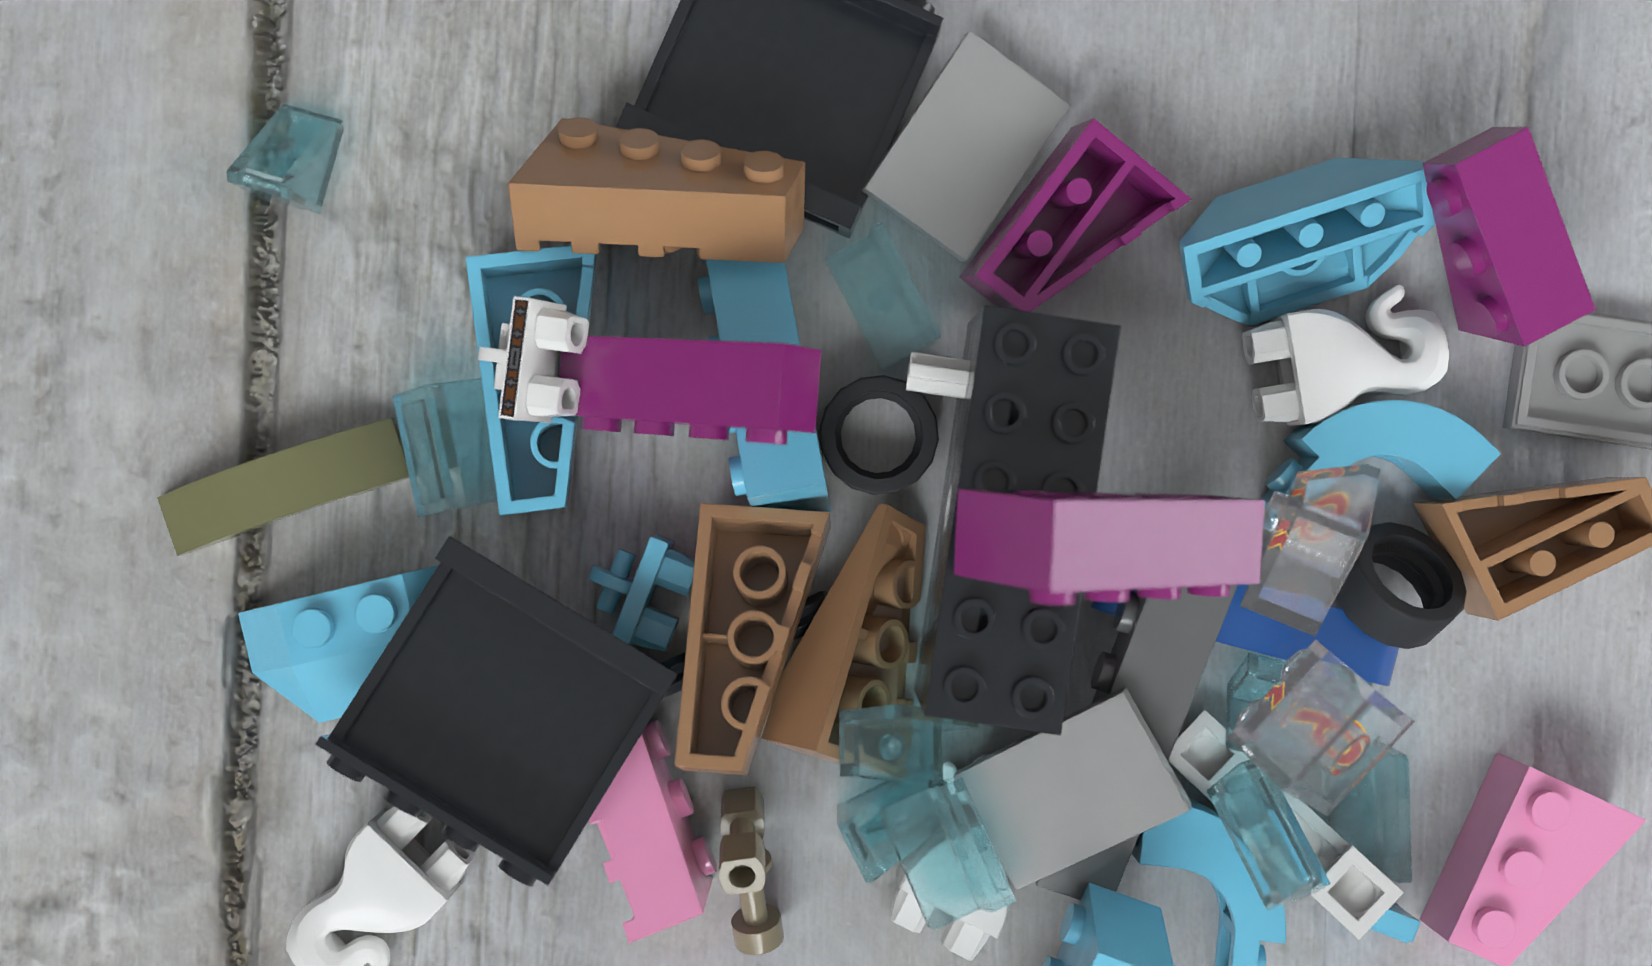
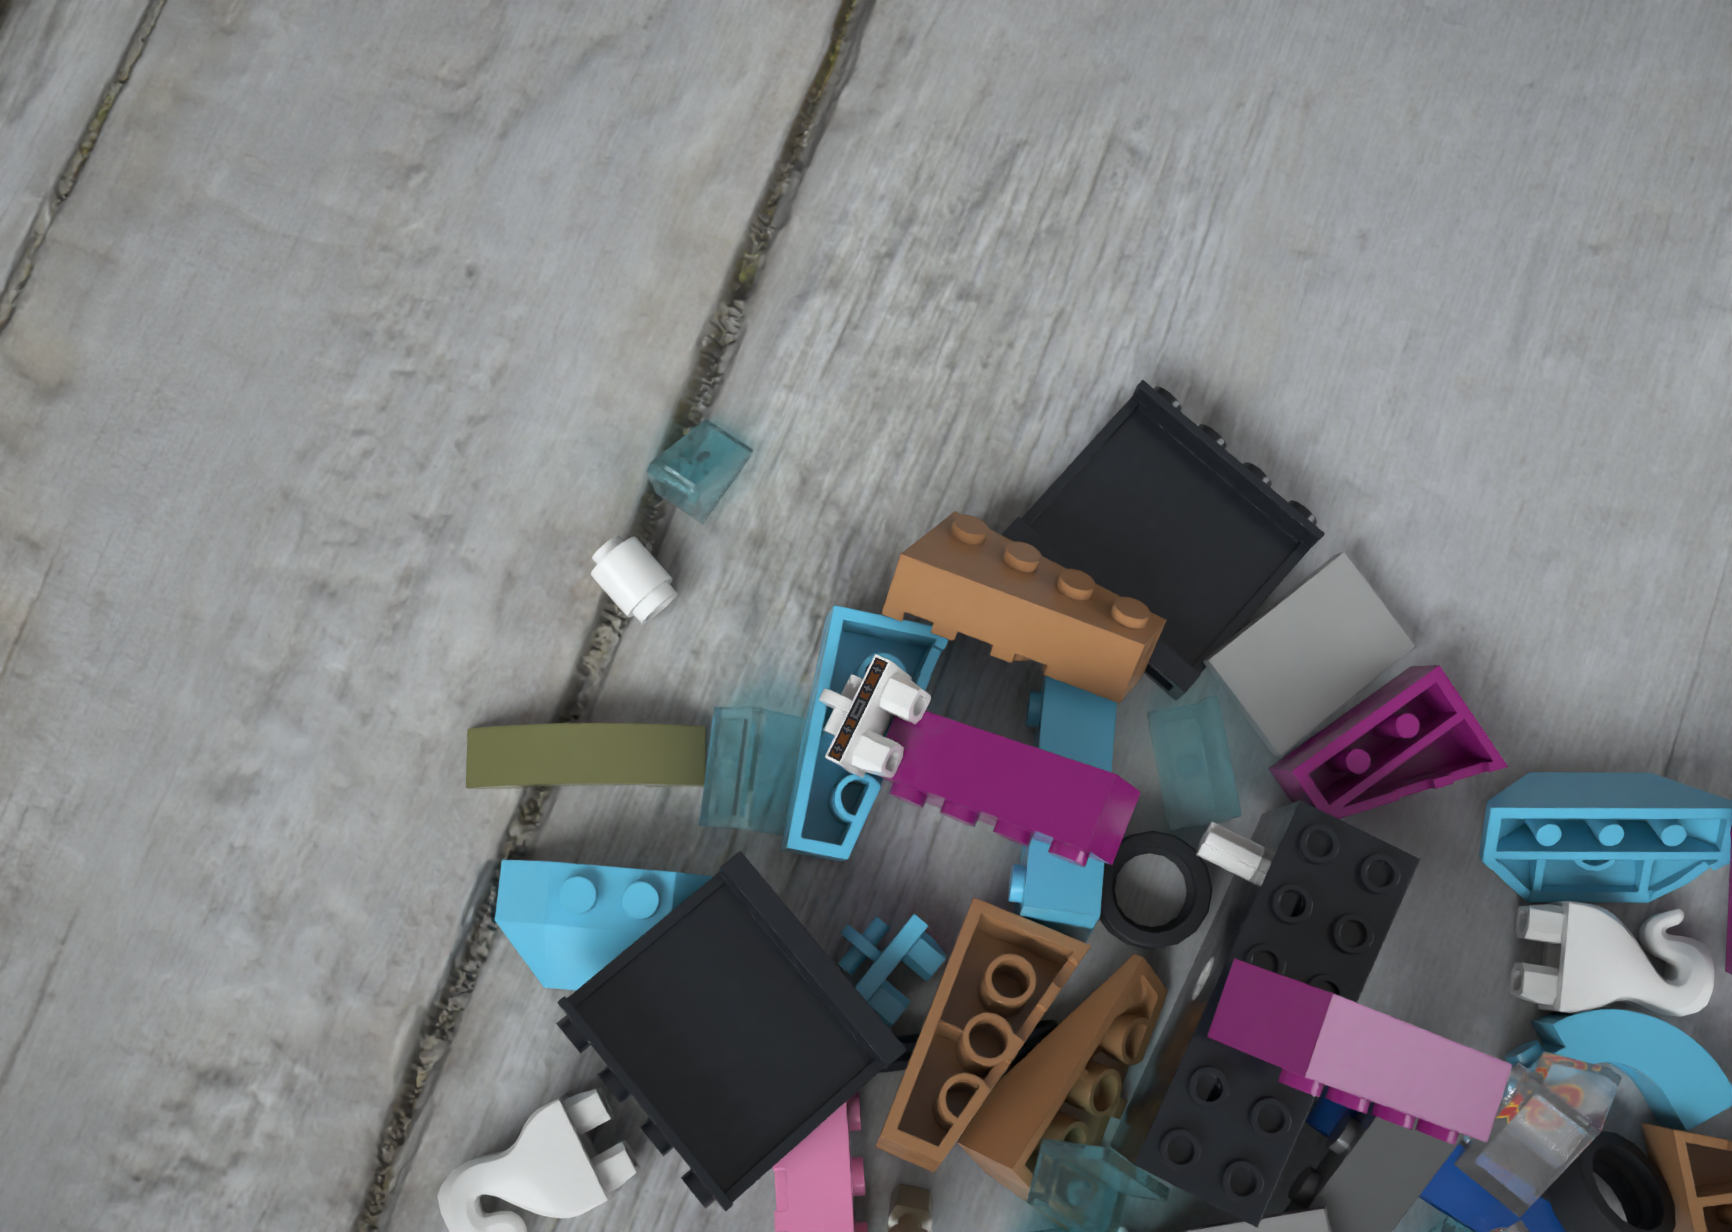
camera: 20 degrees right, 10 degrees down
(264, 293) = (633, 578): none -> white brick

